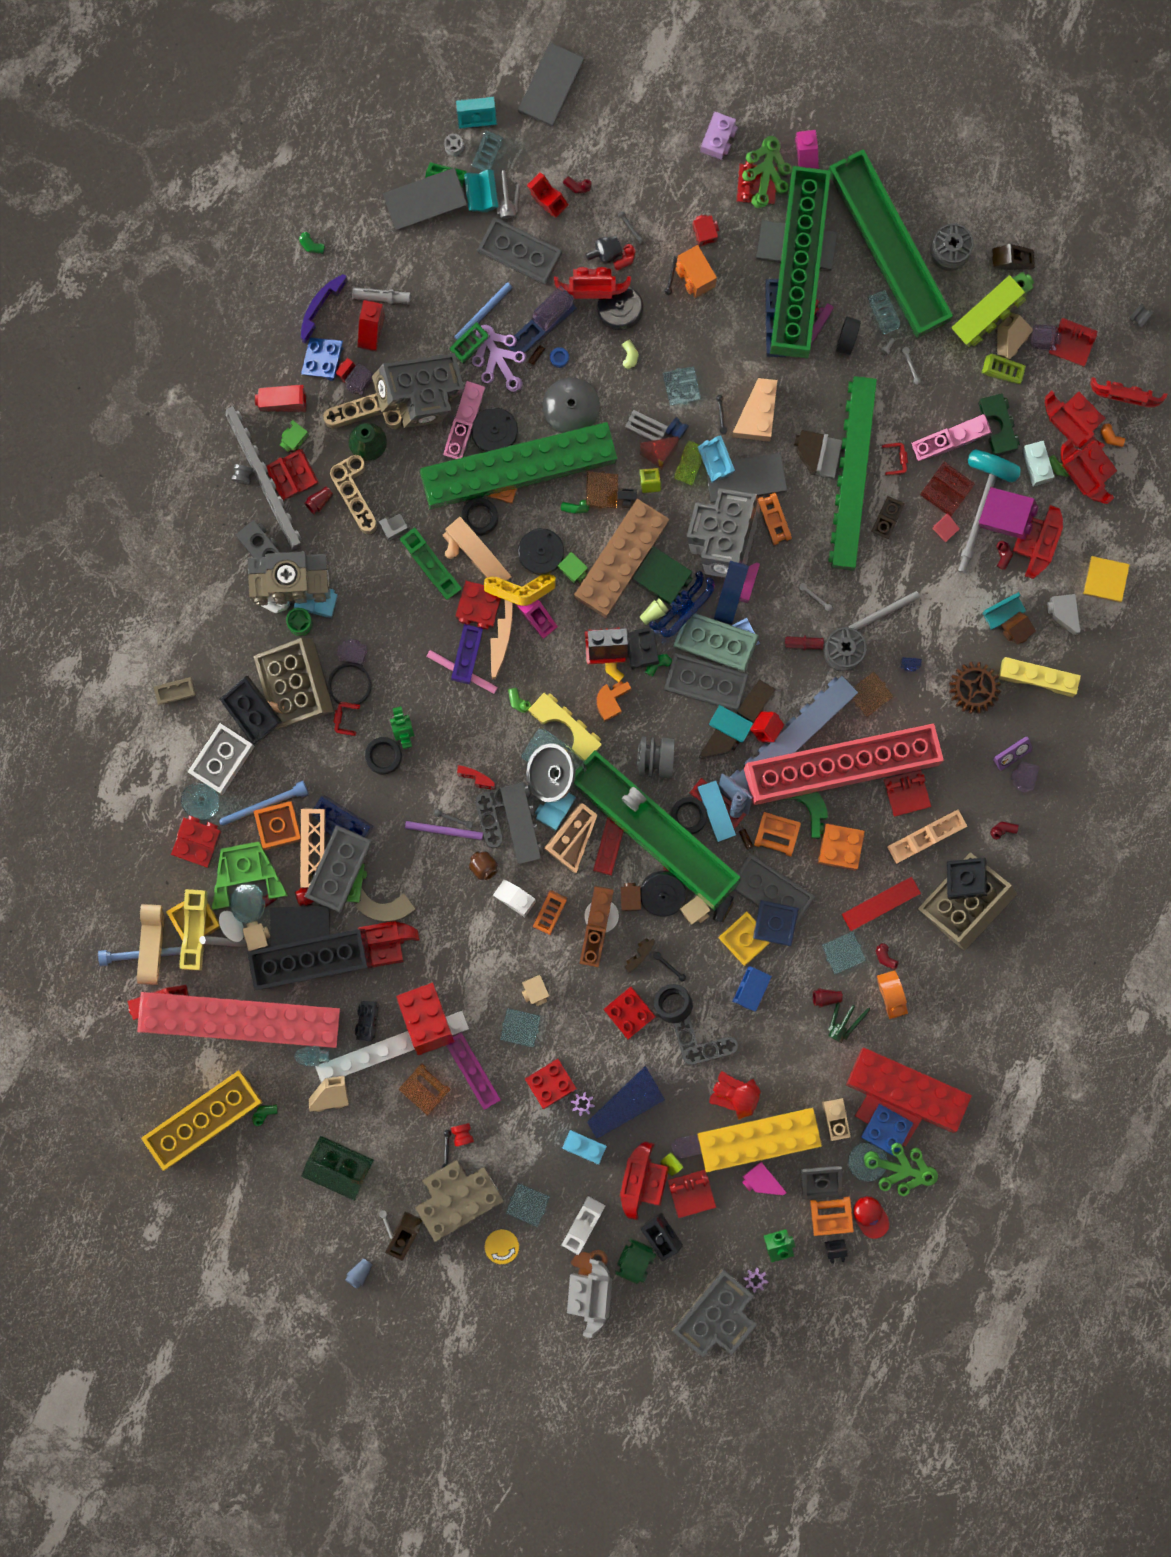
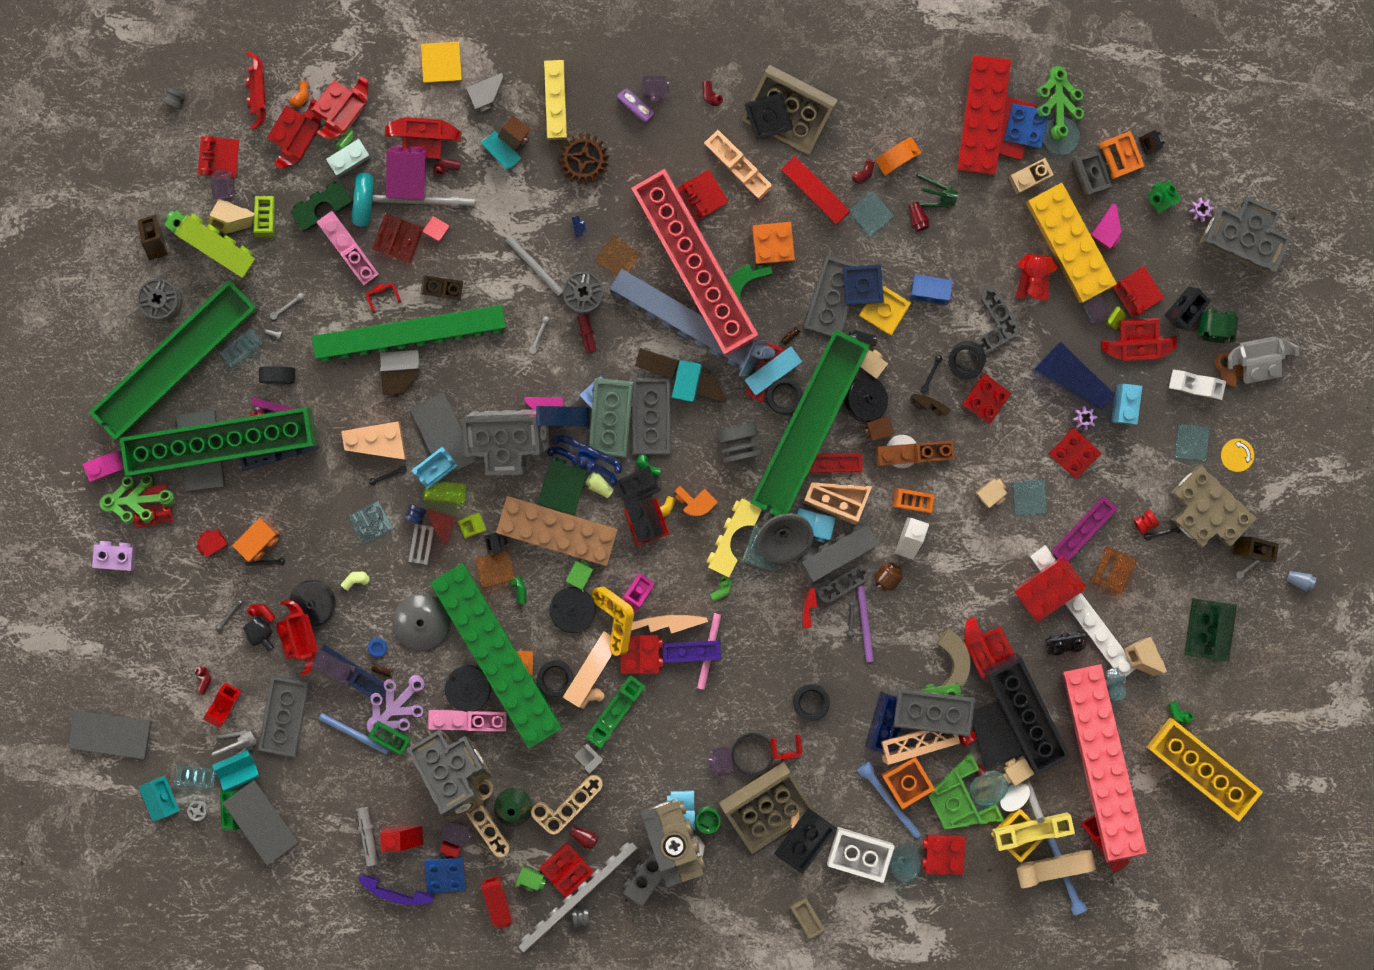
camera: 105 degrees left, 5 degrees up
(308, 244) = (337, 921): green arm -> none
(402, 727) = (781, 692): green gear -> none
(634, 799) = (787, 452): light grey wheel -> none
(767, 726) = (679, 345): red brick -> none
(774, 519) = (475, 396): orange plate -> none
(778, 827) = (771, 307): orange plate -> none
(870, 1217) = (1110, 118): red cap -> none

